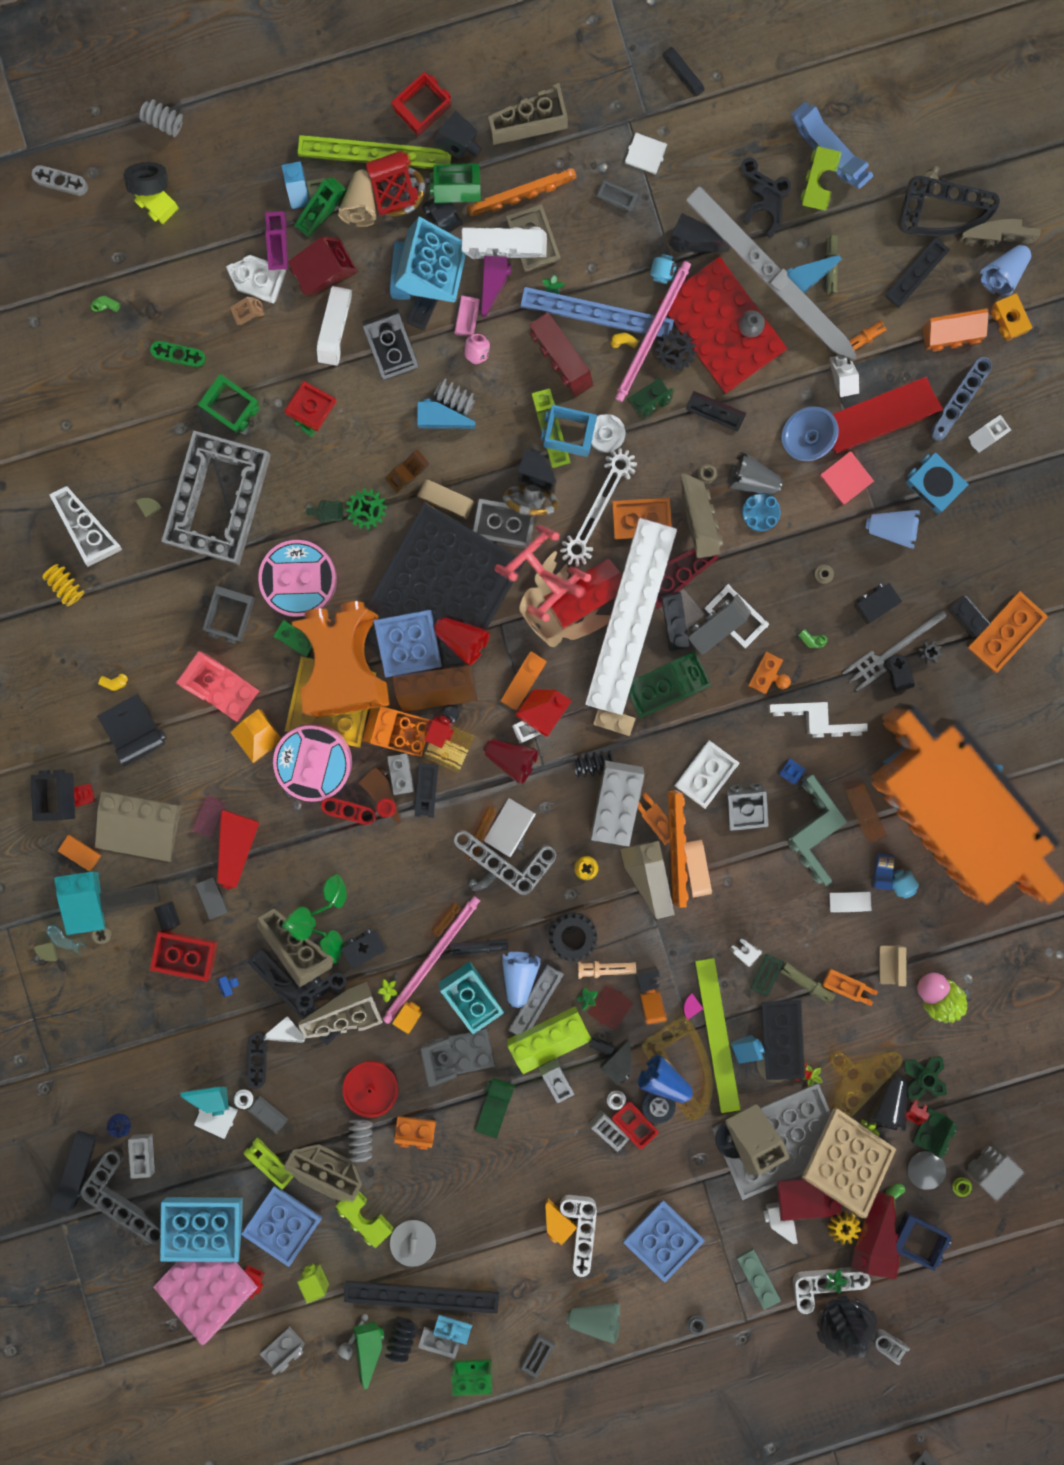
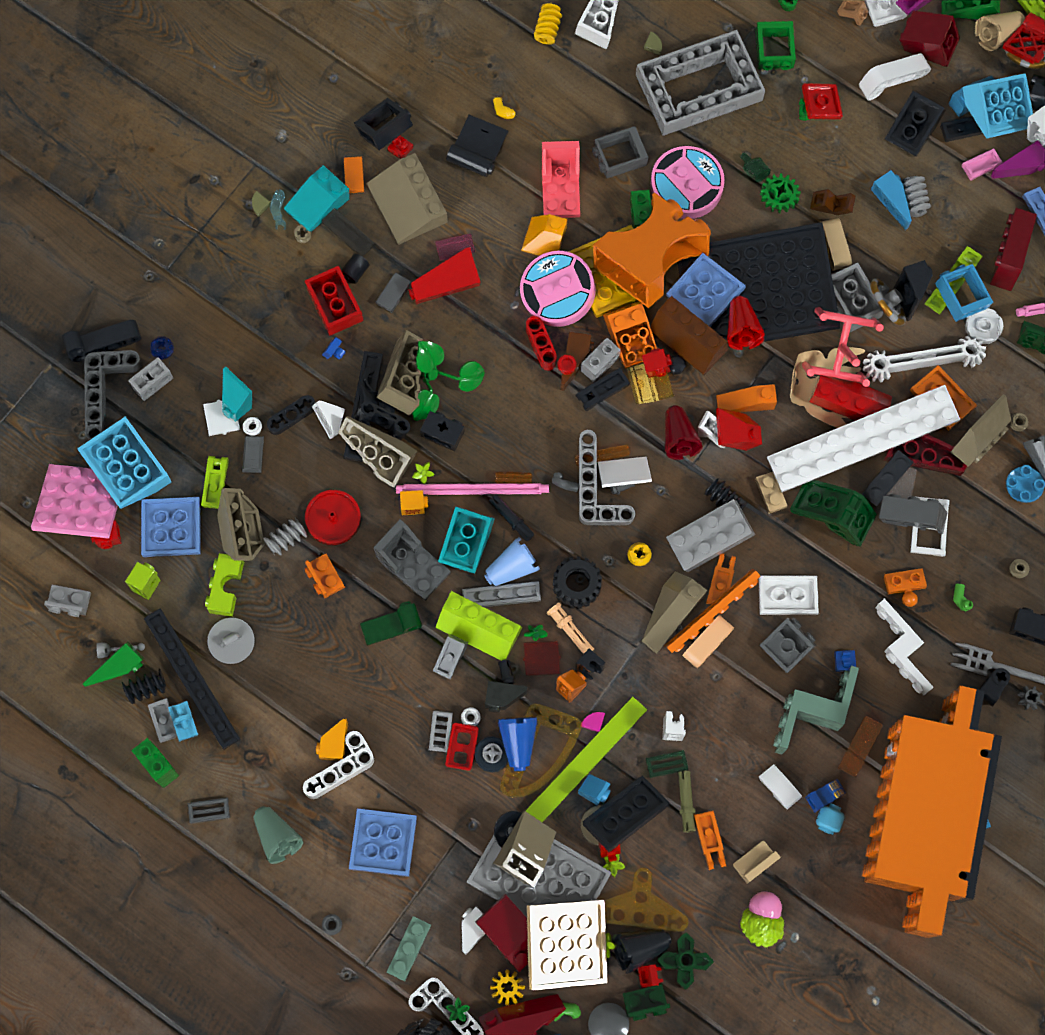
camera: 55 degrees right, 15 degrees down
(476, 349) = (965, 185): bright pink head -> none

